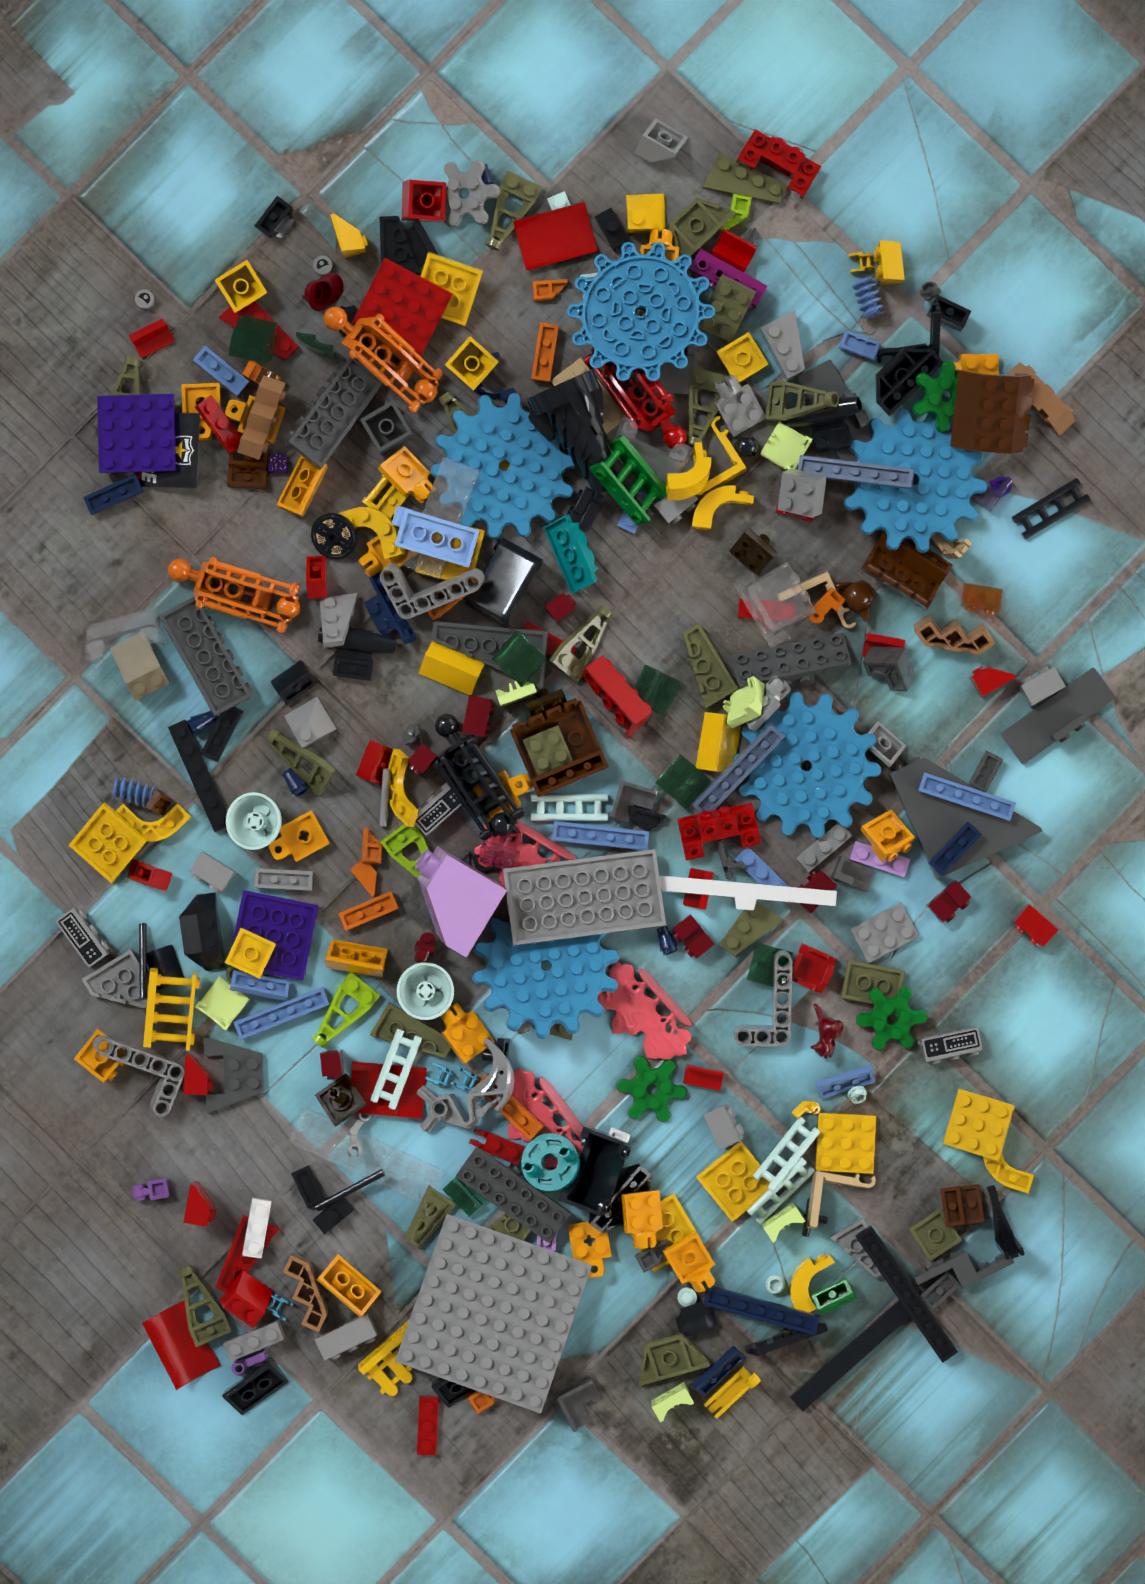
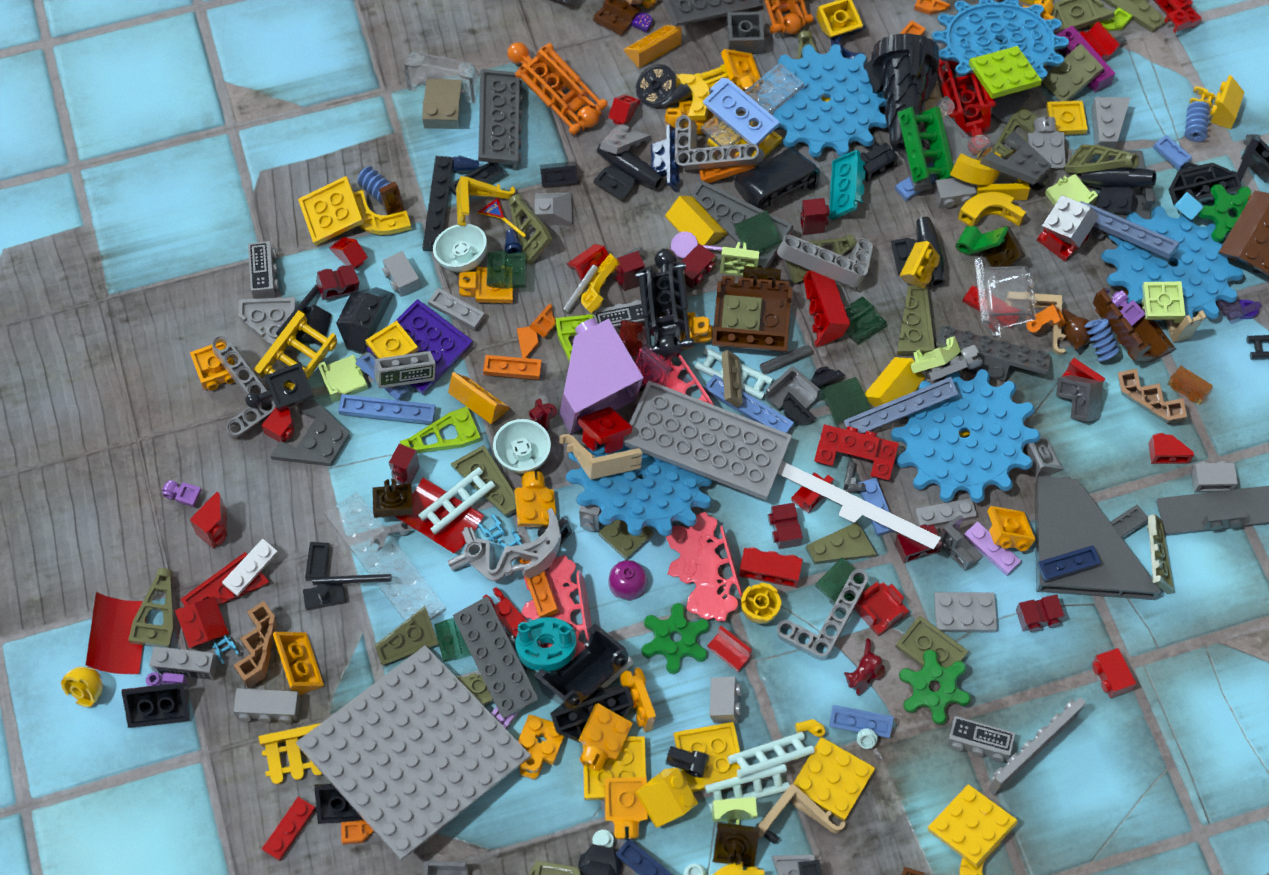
camera: 25 degrees right, 25 degrees down
(160, 913) = (338, 282): none -> dark red brick
(178, 1057) = (277, 381): none -> black plate
(184, 1403) = (83, 685): none -> yellow cylinder
(219, 755) = (471, 187): none -> yellow hinge
(256, 755) = (494, 210): none -> piece
(280, 976) = (404, 369): none -> light grey brick
(308, 817) = (506, 269): none -> clear green slope
(364, 536) = (680, 93): none -> black cone
(455, 697) = (685, 242): none -> lavender piece
(458, 829) = (628, 335): none -> clear red hips
(495, 945) = (604, 427): none -> red panel
(515, 983) = (602, 465): none -> tan hinge
(573, 821) = (732, 378): none -> dark tan plate
(578, 1052) = (627, 580): none -> magenta cylinder
(602, 653) = (827, 263): none -> light grey beam
(612, 763) = (785, 359): none -> dark grey axle
(651, 1164) = (642, 704): none -> light orange plate
(651, 1257) = (590, 780): dark grey tile -> none
(653, 768) = (826, 376): none -> black plate
(666, 360) = (1004, 72): none -> lime plate
(666, 941) = (759, 519): dark blue cone -> none
(678, 589) = (925, 232): none -> black plate
(686, 614) = (920, 264): none -> yellow slope
(699, 982) = (770, 567): none -> red brick
(714, 1033) = (761, 603): none -> yellow cylinder
(721, 1239) = (666, 796): none -> yellow slope
(726, 551) = (974, 241): none -> green door
(727, 1197) = (692, 762): none -> black piece
(732, 446) = (1023, 164): none -> dark grey wing
(798, 1247) = (736, 844): none -> dark brown plate
(884, 600) = (1103, 339): none -> medium blue piece
(897, 556) = (1130, 311): none -> medium lavender plate
(903, 412) = (1188, 206): none -> medium azure slope
(924, 537) = (1163, 301): none -> yellowish green piece
(966, 796) = (1101, 526): medium blue plate -> none
(999, 1034) = (1035, 746): none -> light grey plate
(1027, 792) = (1159, 555): none -> olive wing

